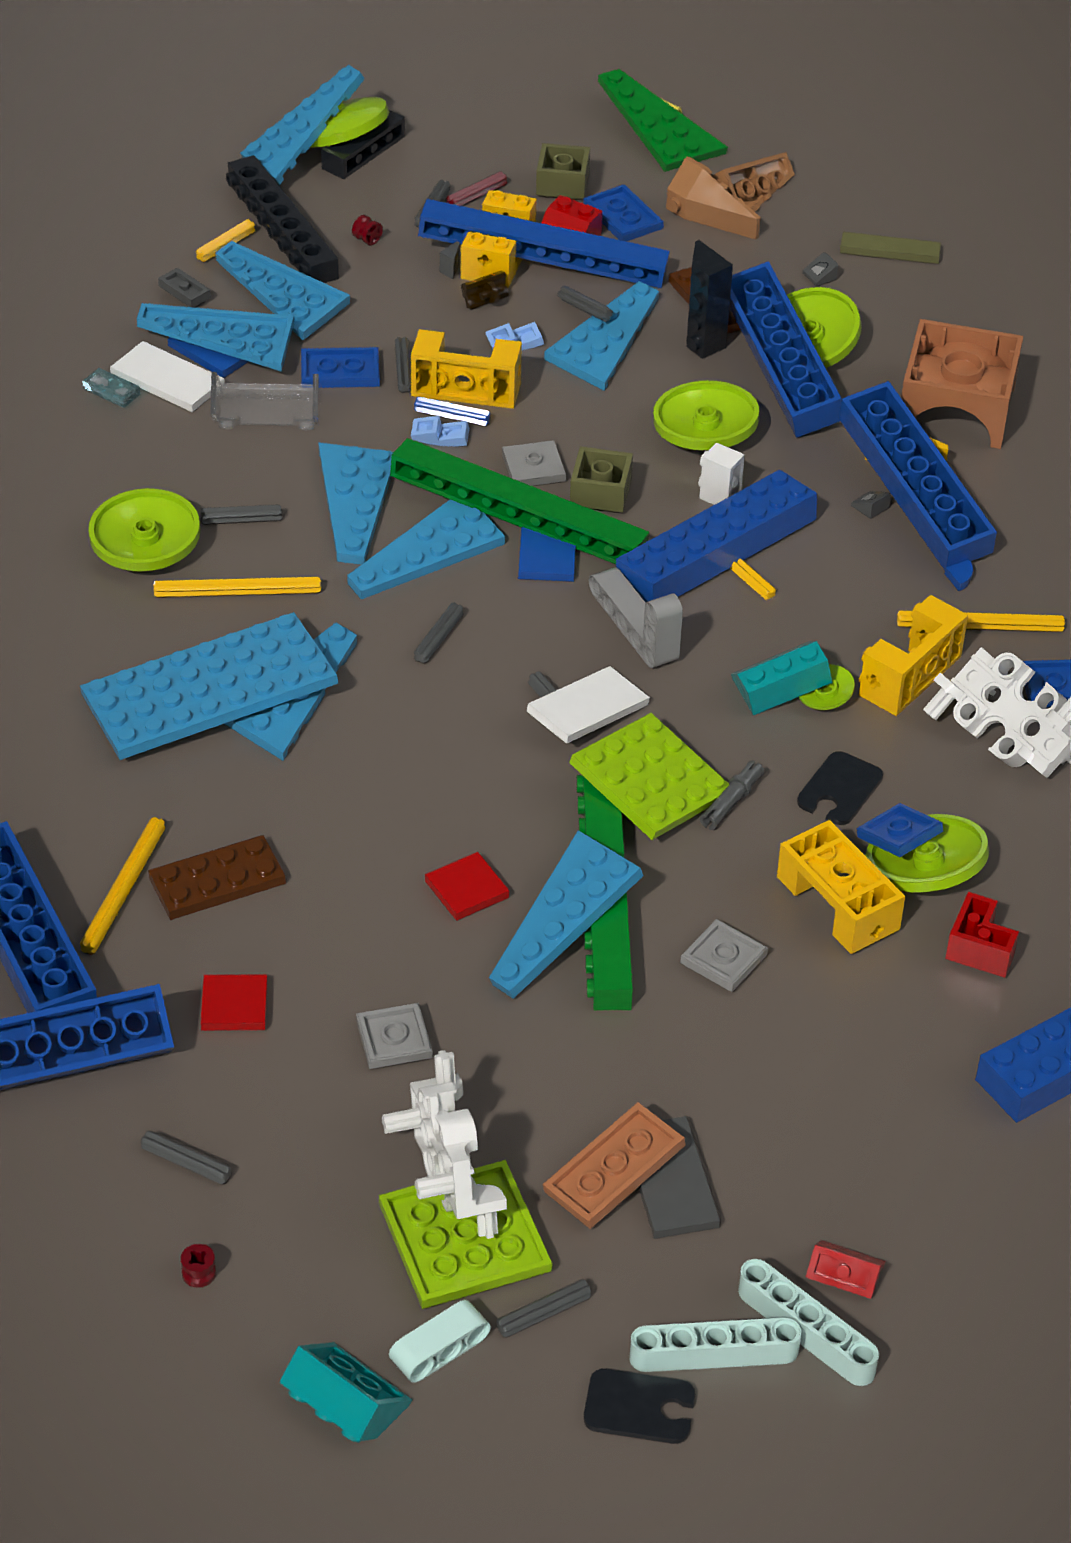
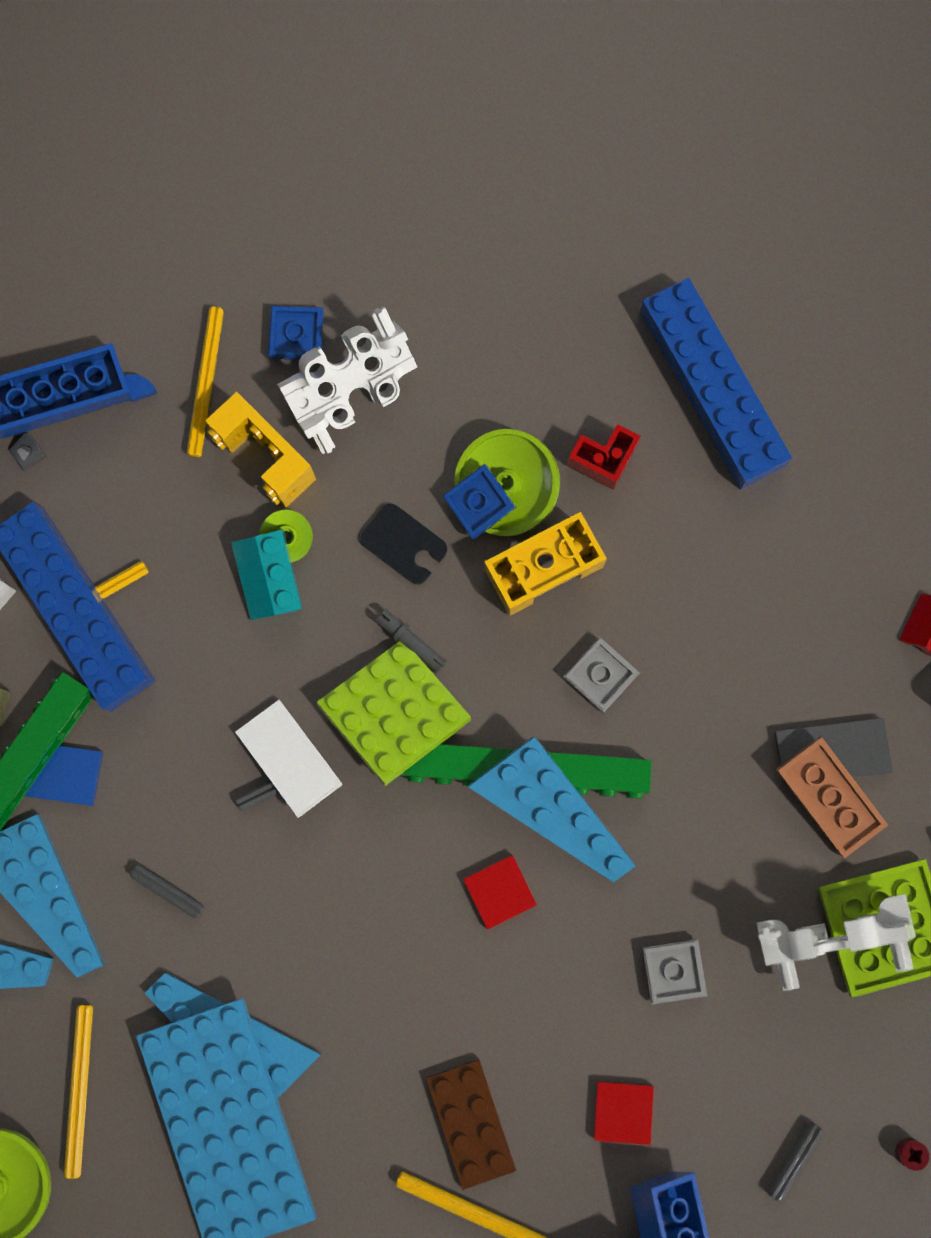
camera: 80 degrees left, 35 degrees up
(649, 626) = (209, 684): light grey beam -> none

